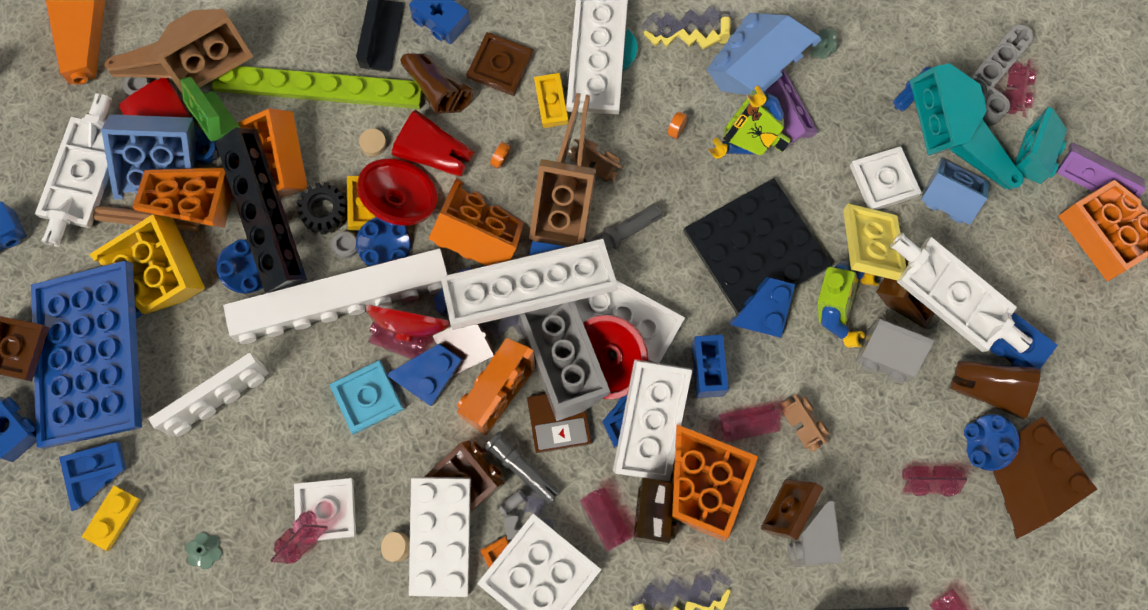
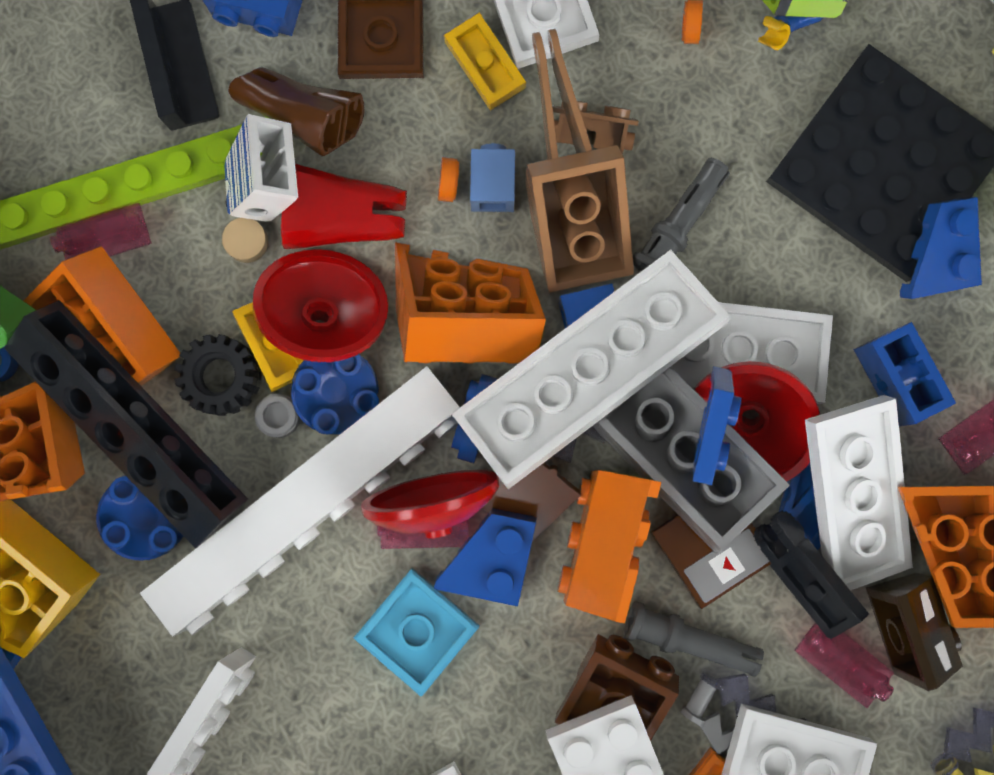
camera: 15 degrees left, 10 degrees up
(304, 108) = (114, 231): none -> clear pink hinge
(393, 115) = (265, 184): none -> white torso
(524, 165) = (492, 179): none -> medium blue brick
(578, 338) = (720, 411): none -> blue wing
(603, 454) = (809, 575): none -> black hinge

